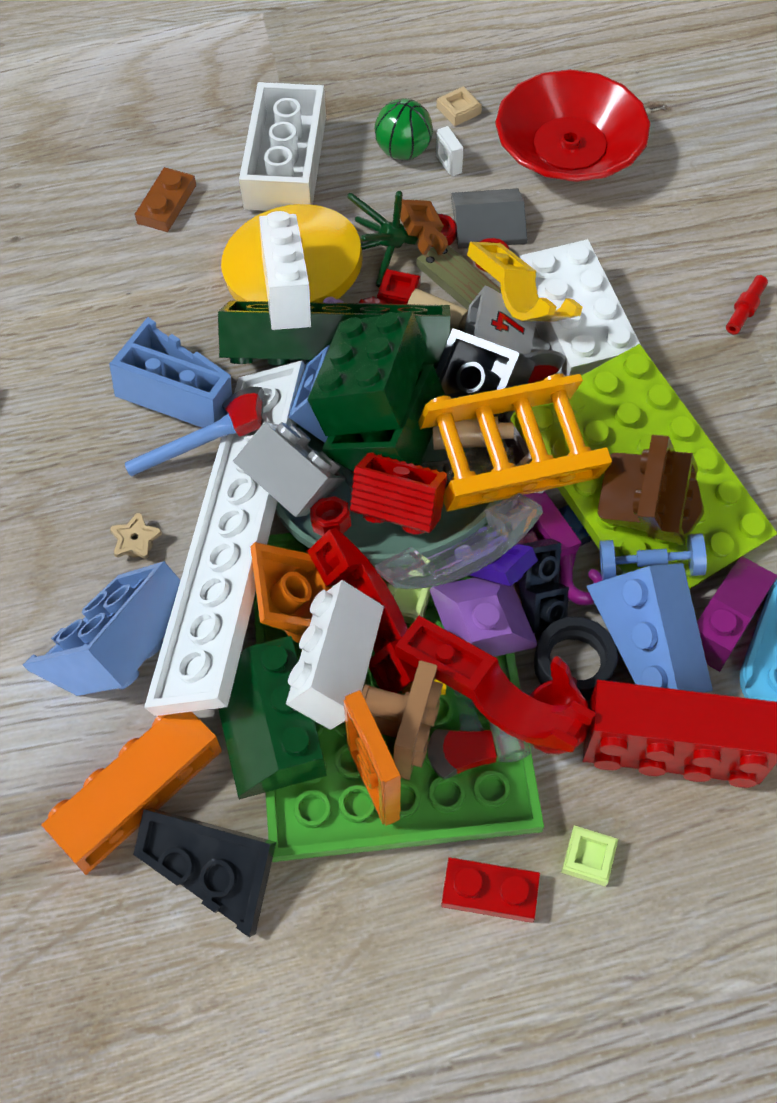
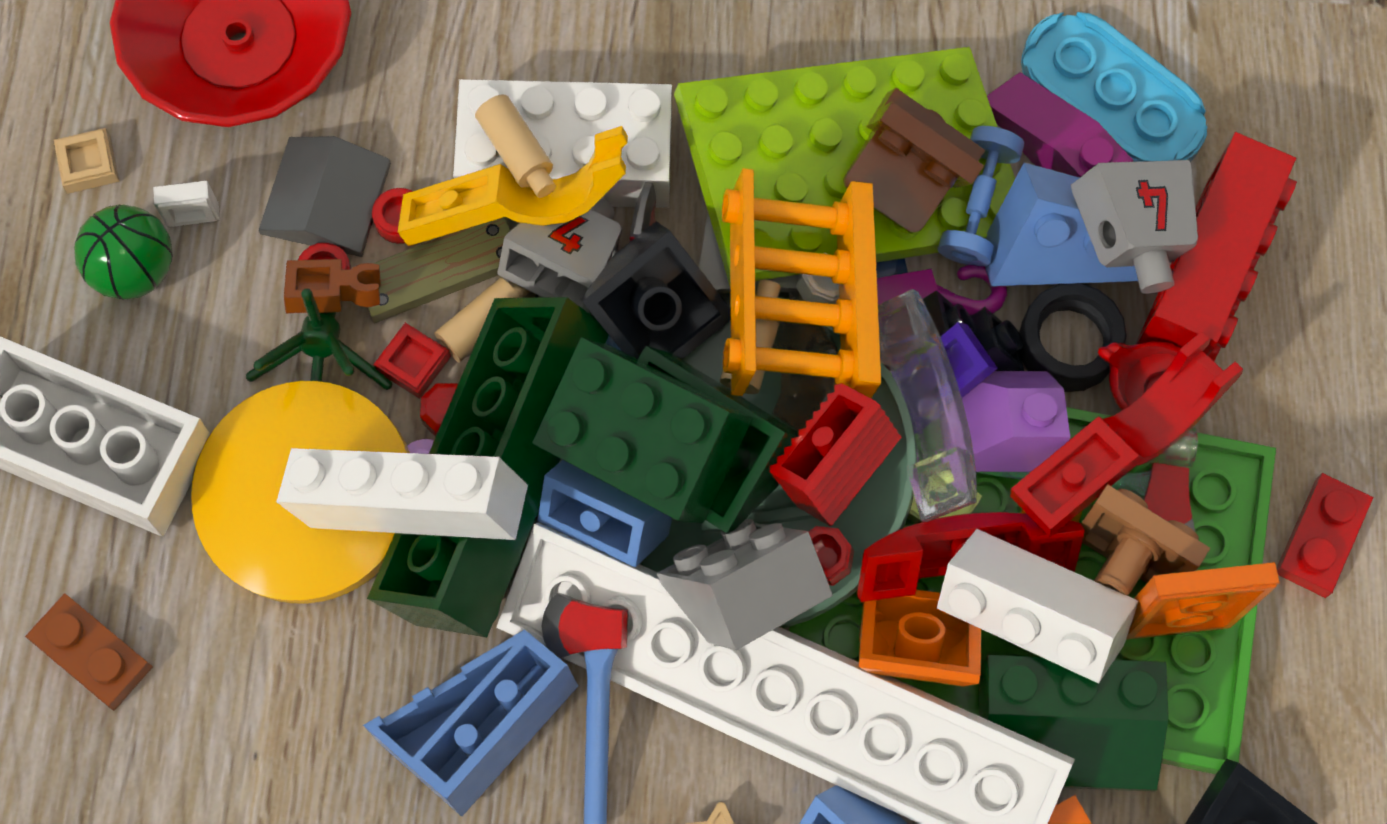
camera: 75 degrees left, 10 degrees up
(550, 269) = (516, 144): none -> tan cylinder
(589, 855) = (1309, 413): yellowish green tile -> none
(669, 641) = (1139, 216): none -> light grey torso

